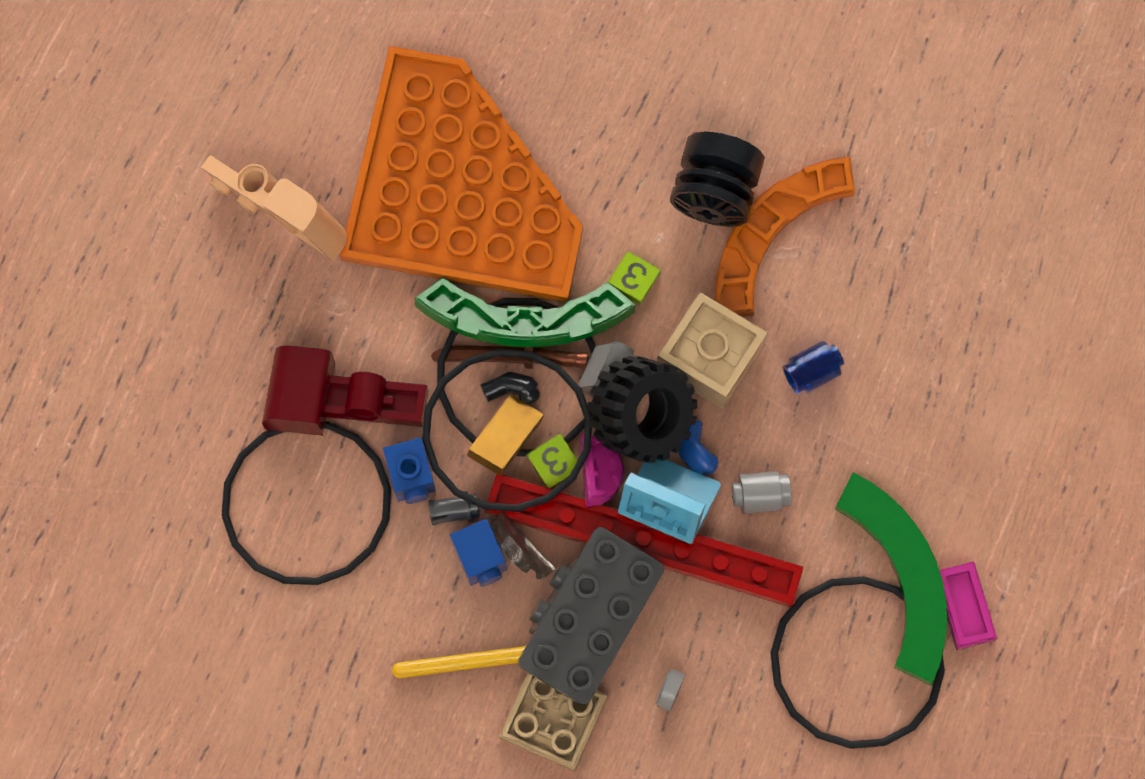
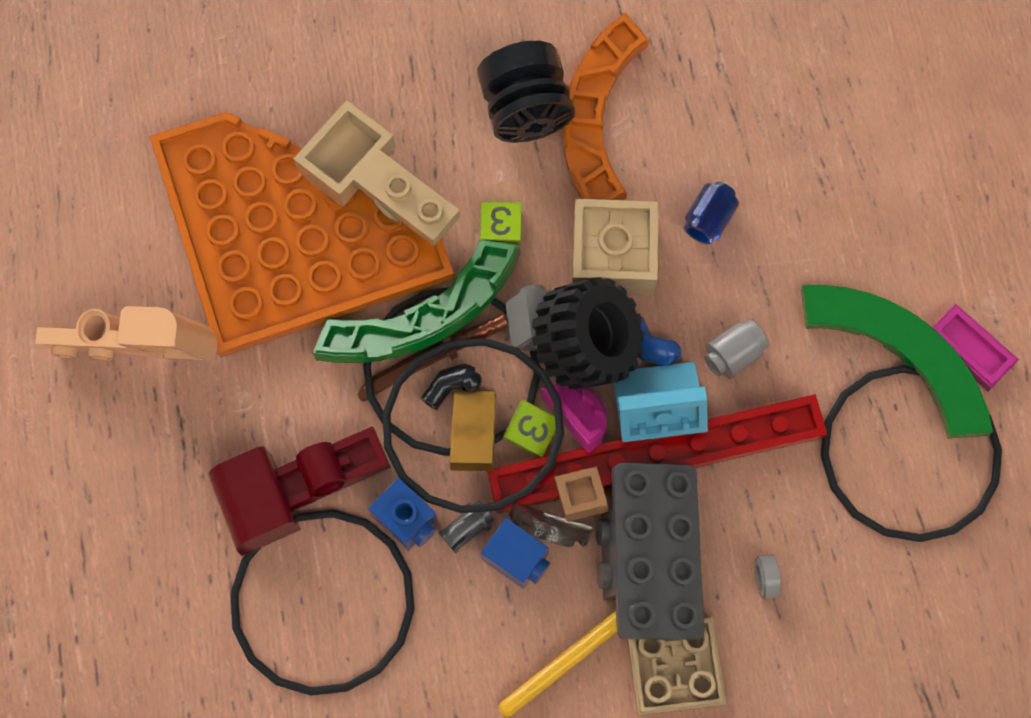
camera: 30 degrees left, 0 degrees up
(540, 154) = (354, 155): none -> tan plate
(558, 535) = (581, 494): none -> medium nougat tile

